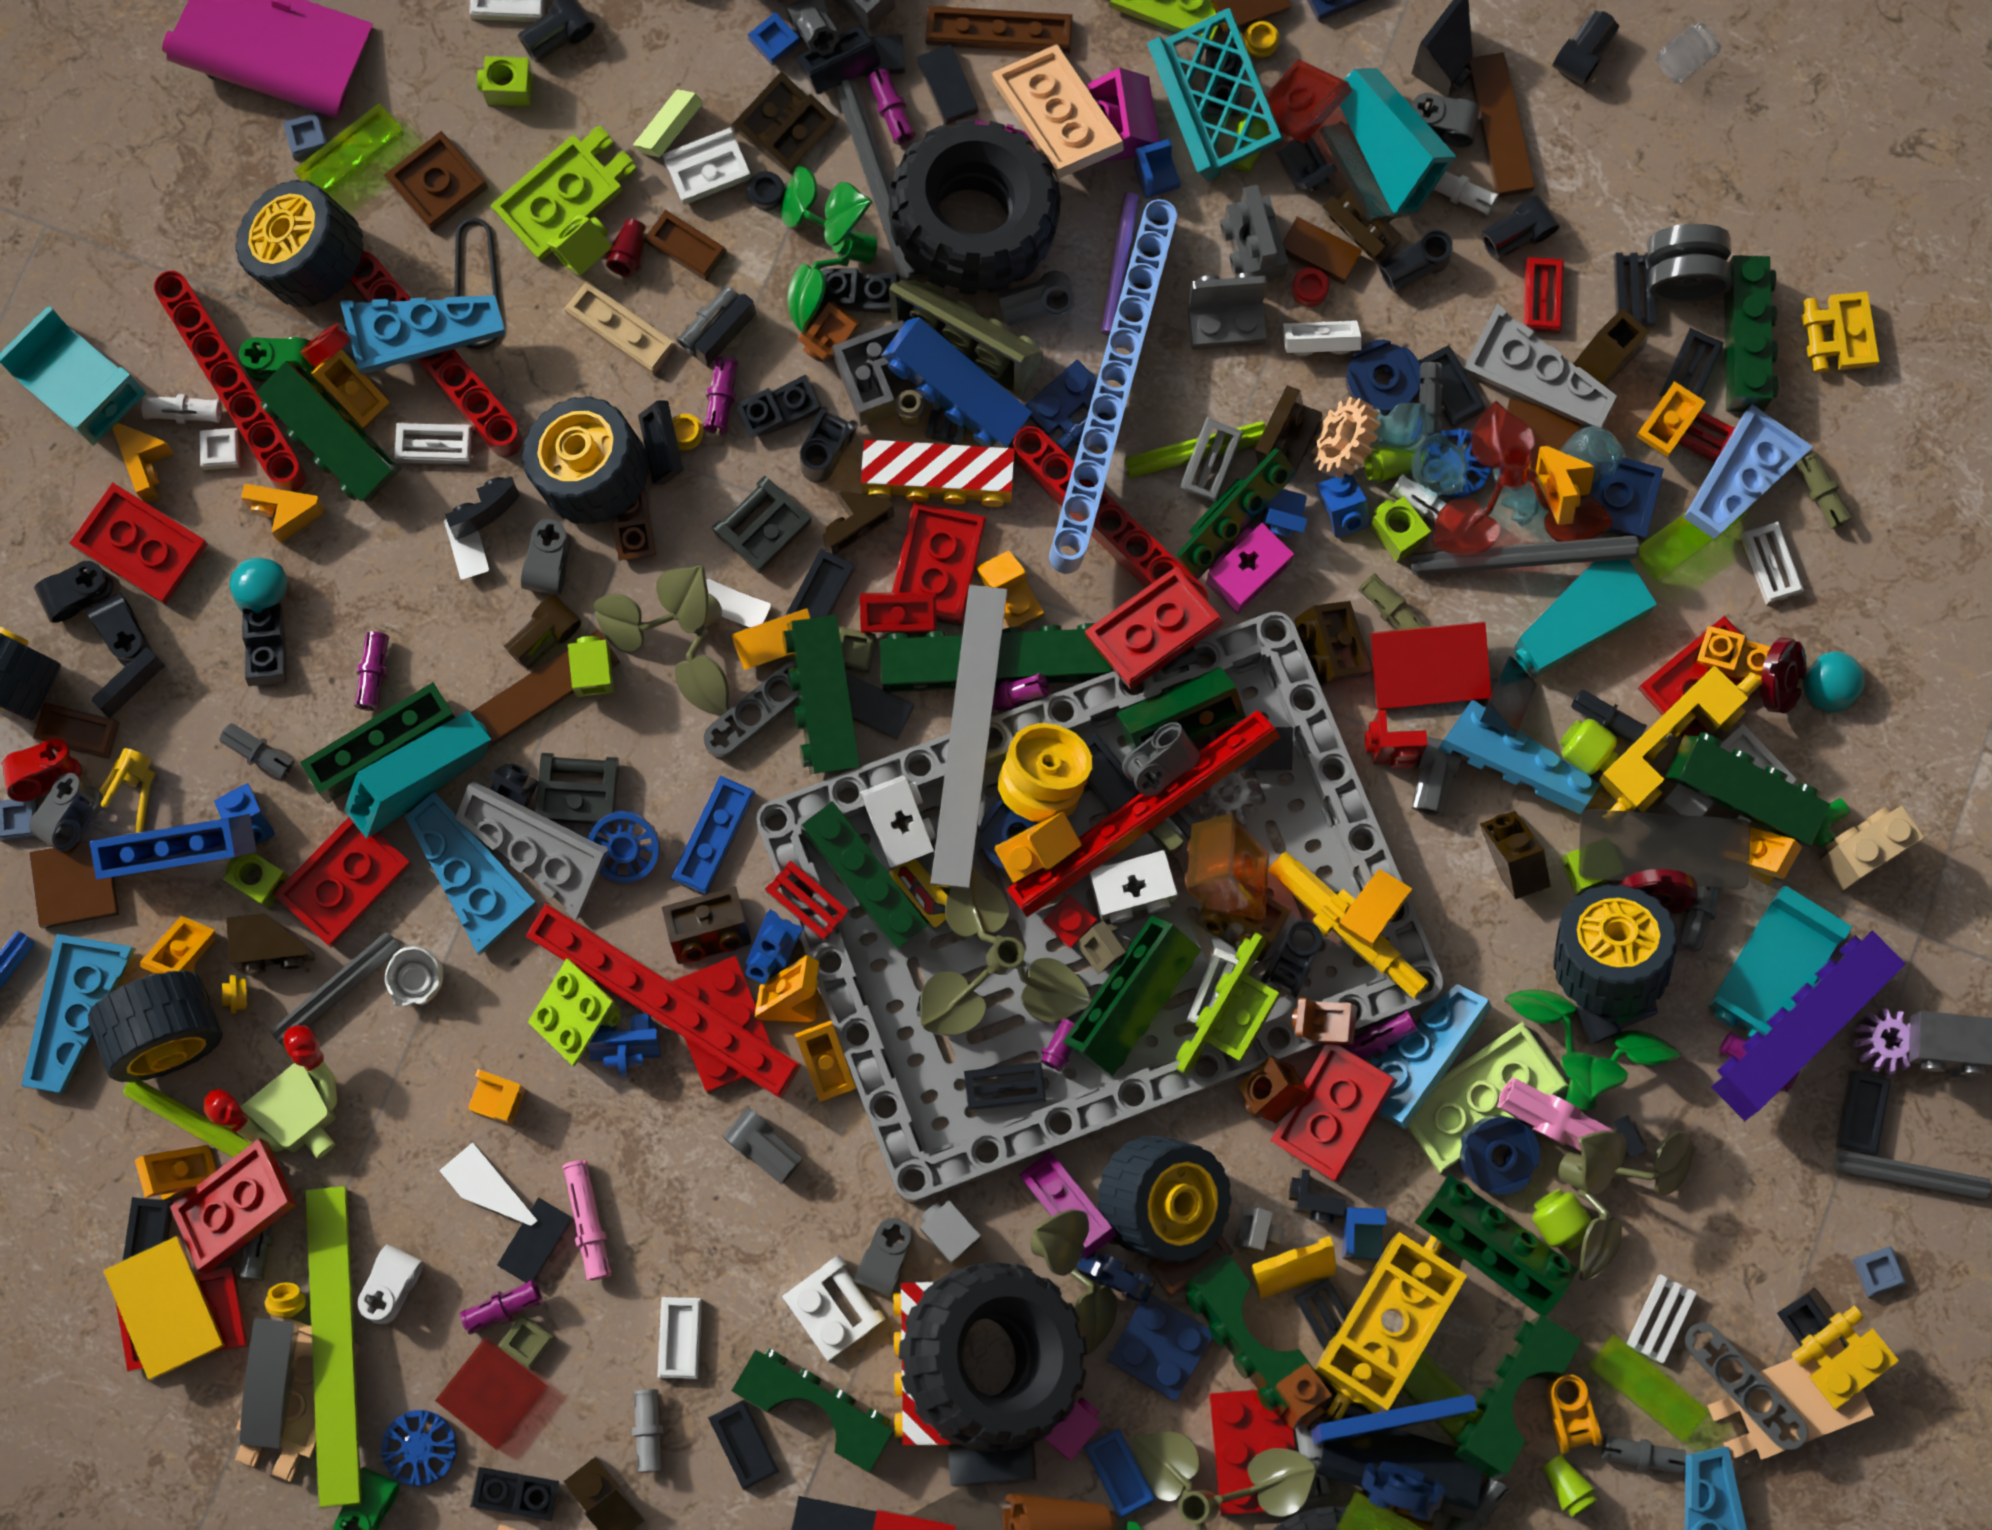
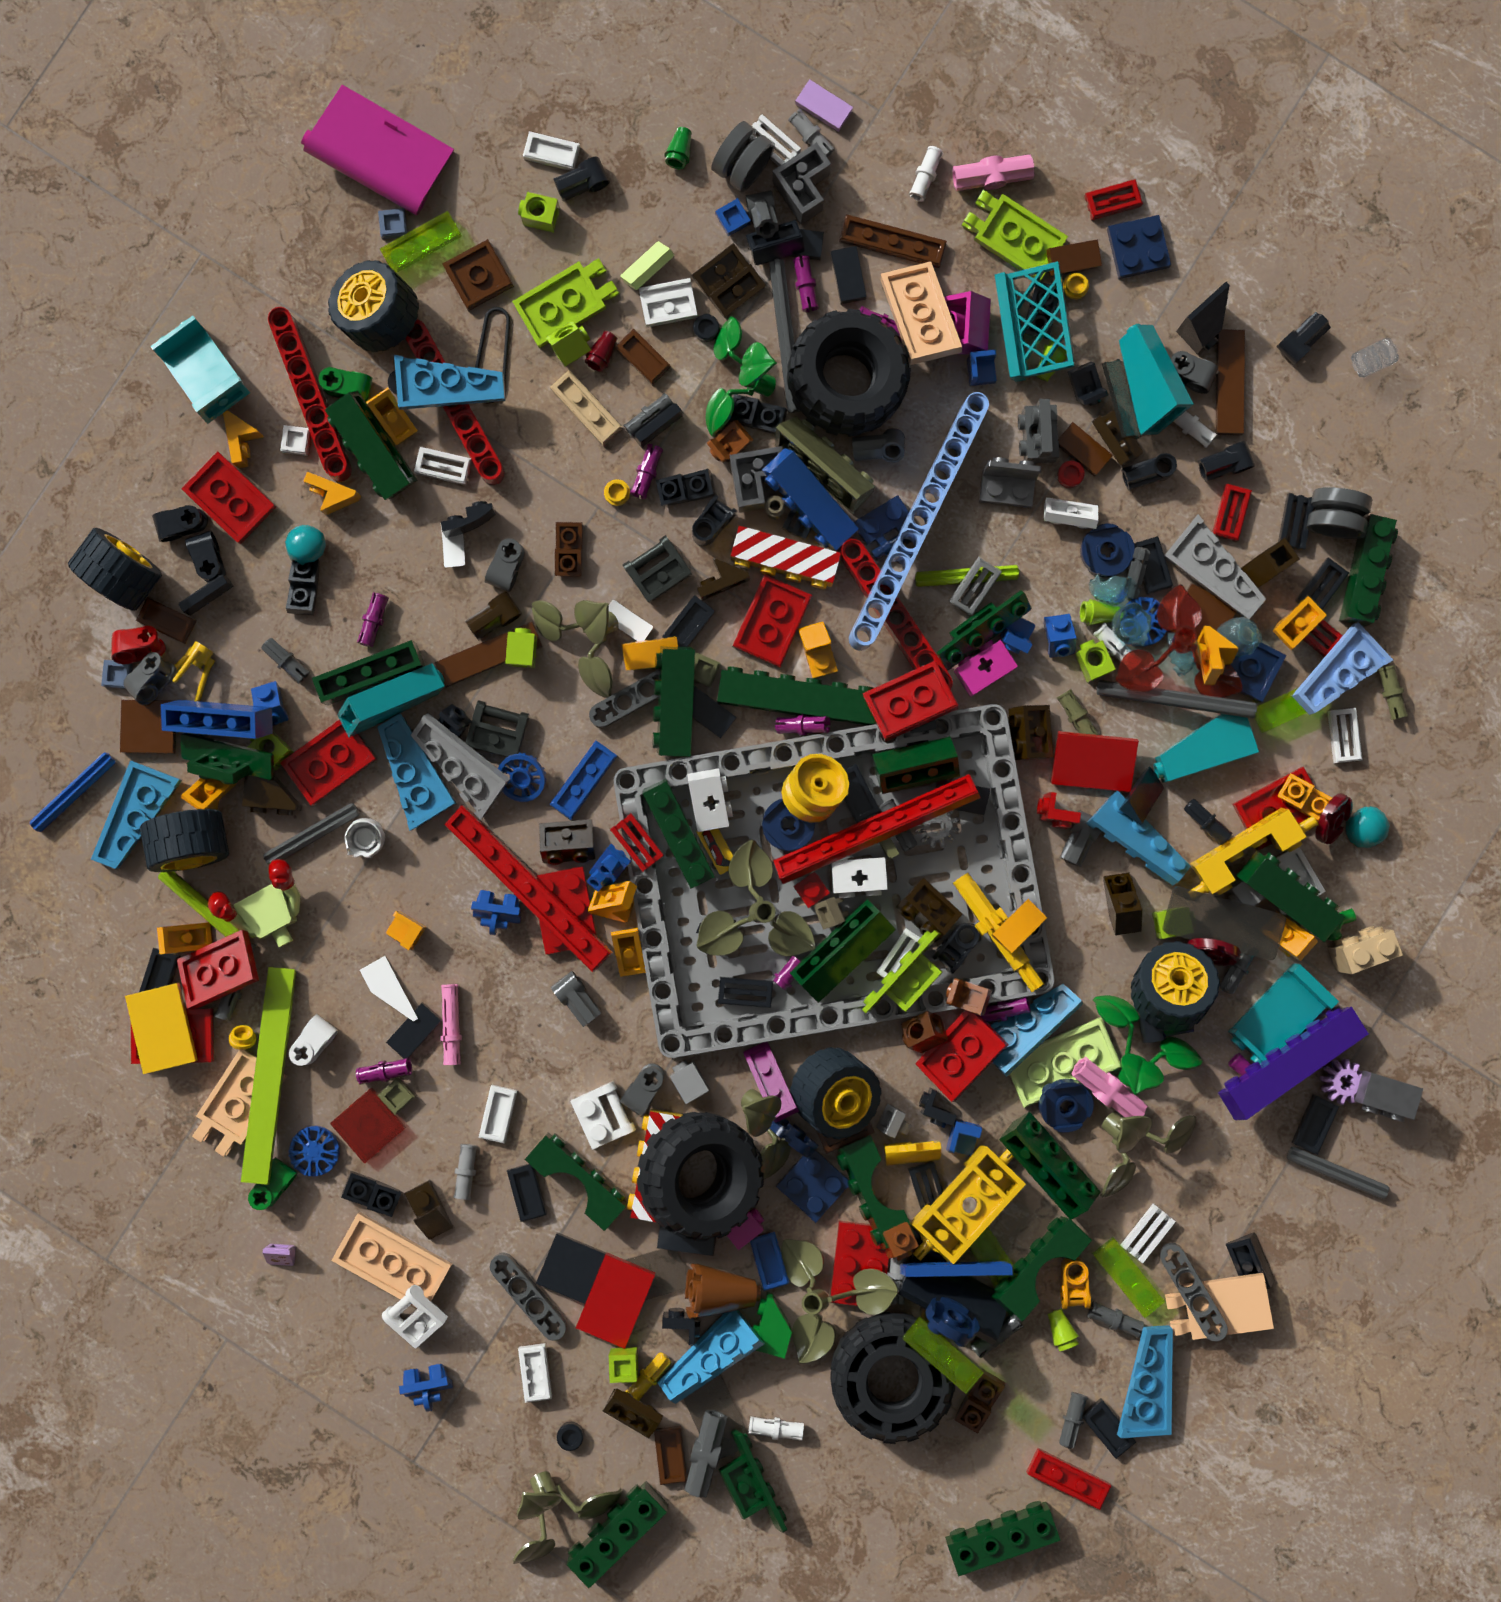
camera: 10 degrees right, 10 degrees up
(181, 408) = (273, 407): white pin -> none
(194, 903) = (224, 760): none -> dark green bracket
(234, 994) = (242, 825): yellow plate -> none
(268, 1383) = (221, 1092): dark grey slope -> none
(325, 345) = (379, 384): red beam -> none
(573, 1012) = (466, 884): lime hinge -> none
(585, 460) = (544, 502): black wheel -> none
(660, 442) = (598, 497): black tile -> none
(898, 612) = (738, 652): red plate -> none
(969, 737) = (769, 750): light grey tile -> none
(1038, 847) = (800, 838): light orange slope -> none
(1120, 259) = (942, 428): medium lavender bar -> none
(1163, 759) = (897, 794): dark grey piece -> none
(1227, 867) = (925, 878): clear orange slope -> none
(1289, 428) = (1034, 576): dark brown bracket -> none
(1305, 99) = (1096, 338): clear red tile -> none
(1345, 437) = (1071, 591): light nougat gear -> none
(1561, 1219) = (1097, 1156): lime head -> none
(1589, 746) = (1189, 840): lime head -> none
(1634, 1140) = (1155, 1113): black plate -> none
(1851, 328) = (1440, 583): yellow plate -> none
(1852, 1367) = (1265, 1296): yellow plate -> none
(1879, 1271) = (1300, 1231): sand blue tile -> none

